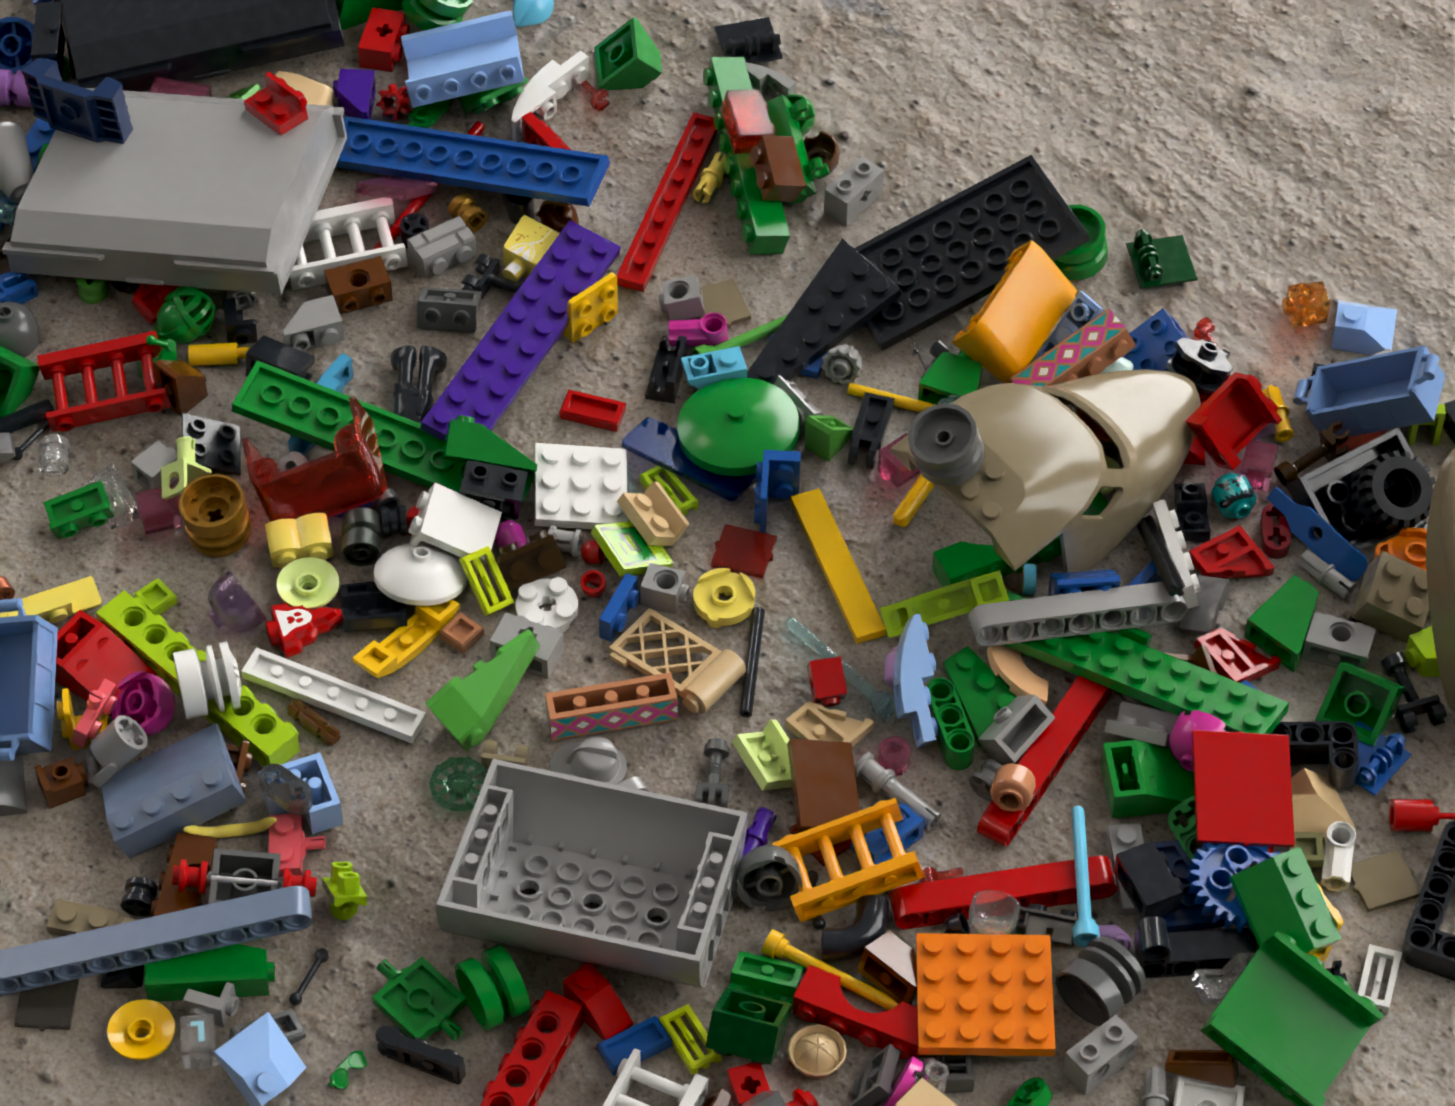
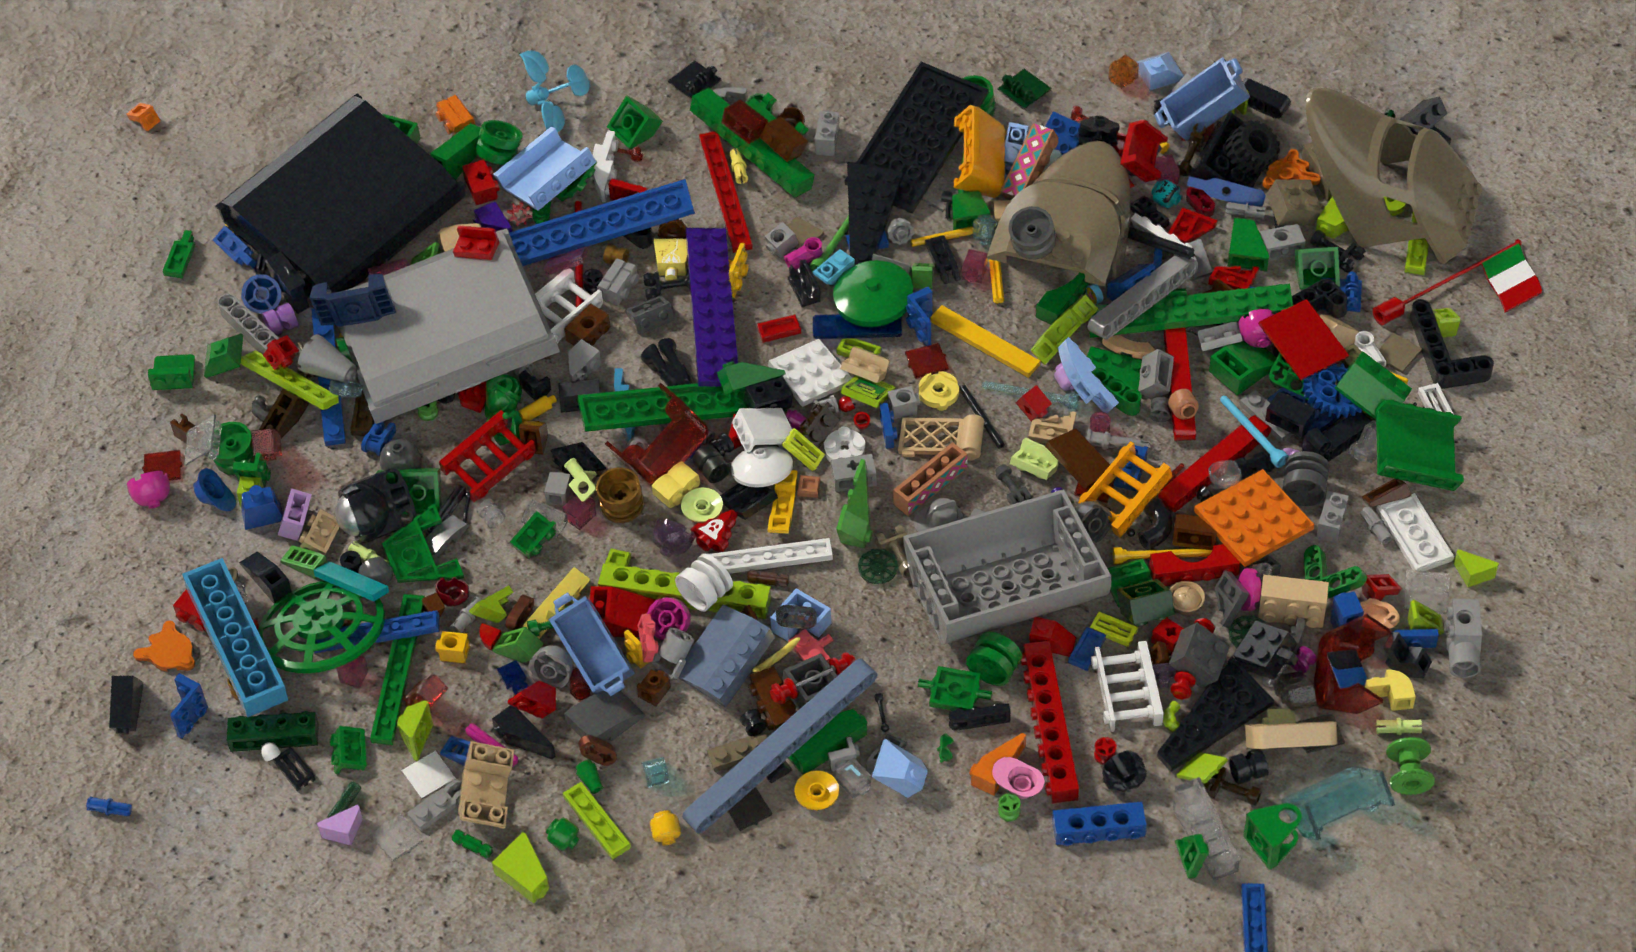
camera: 30 degrees left, 0 degrees up
(344, 890) = (868, 651): lime hips -> none

